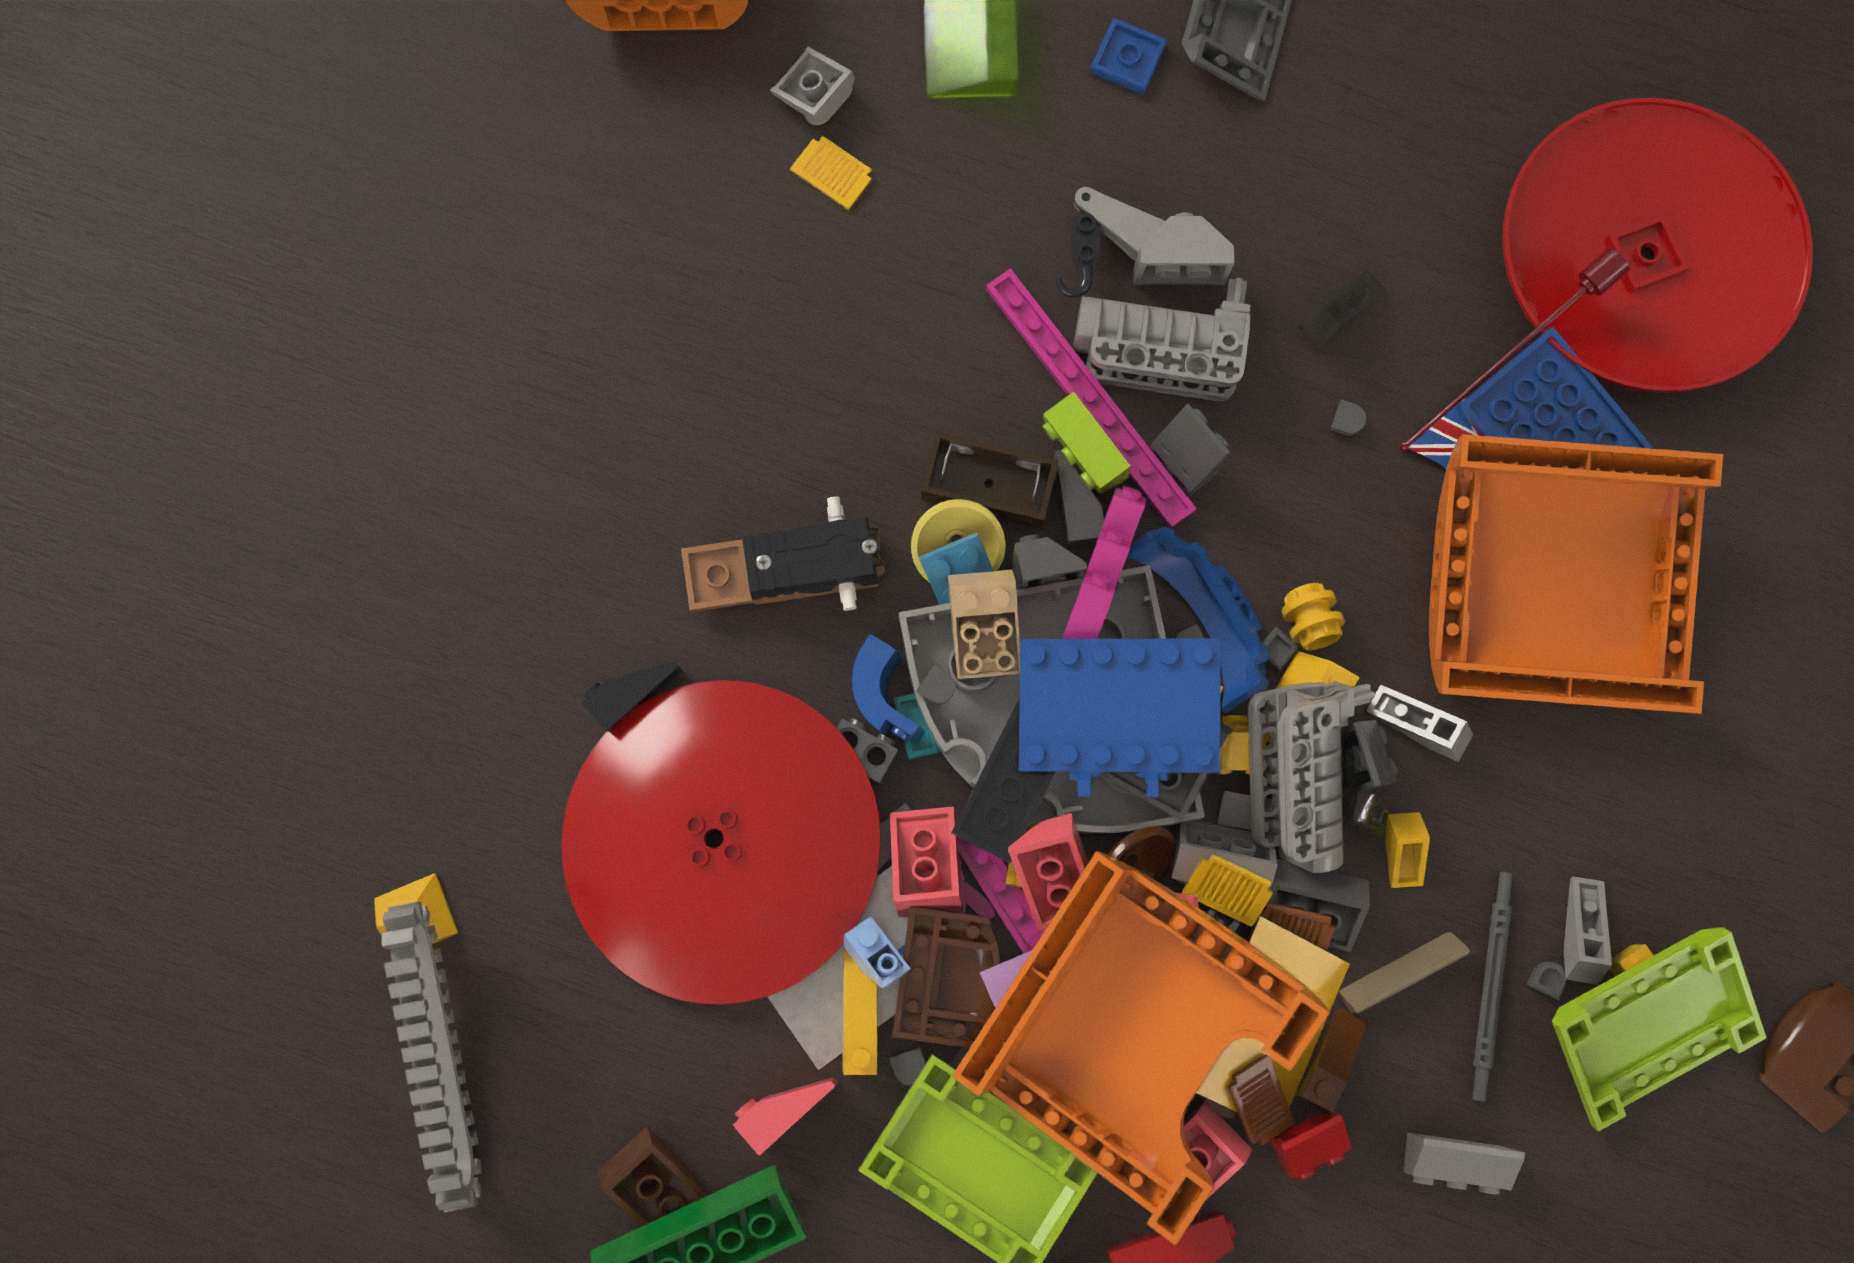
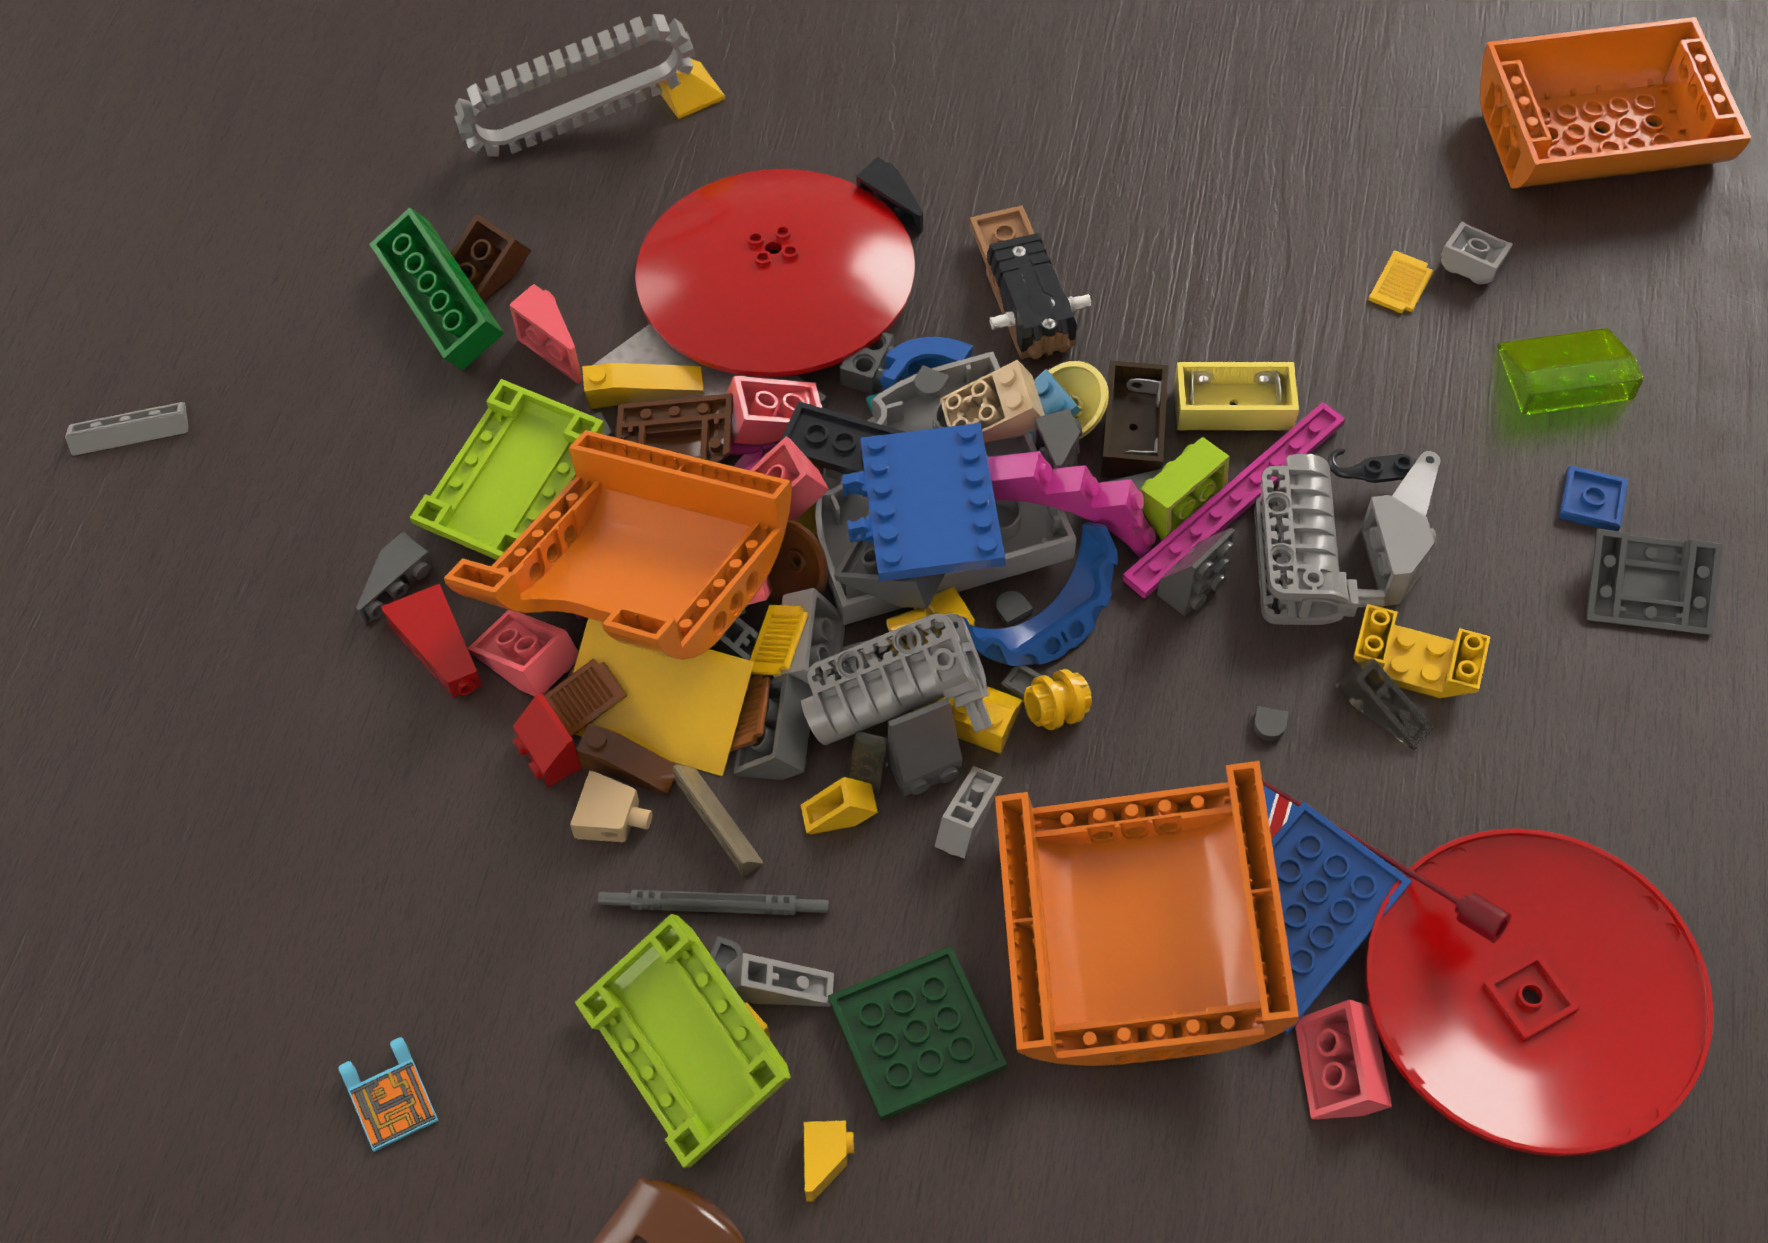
camera: 85 degrees right, 20 degrees down
(874, 953) = (690, 374): light blue slope -> none
(977, 345) = (1261, 390): none -> light yellow piece
(1298, 258) = (1421, 659): none -> yellow slope
(1388, 1083) = (607, 810): none -> tan torso
(1461, 1163) = (537, 876): light grey slope -> none
(1642, 805) = (916, 1033): none -> dark green plate
(1702, 424) = (1342, 1062): none -> coral slope
(1756, 905) = (824, 1154): none -> yellow slope

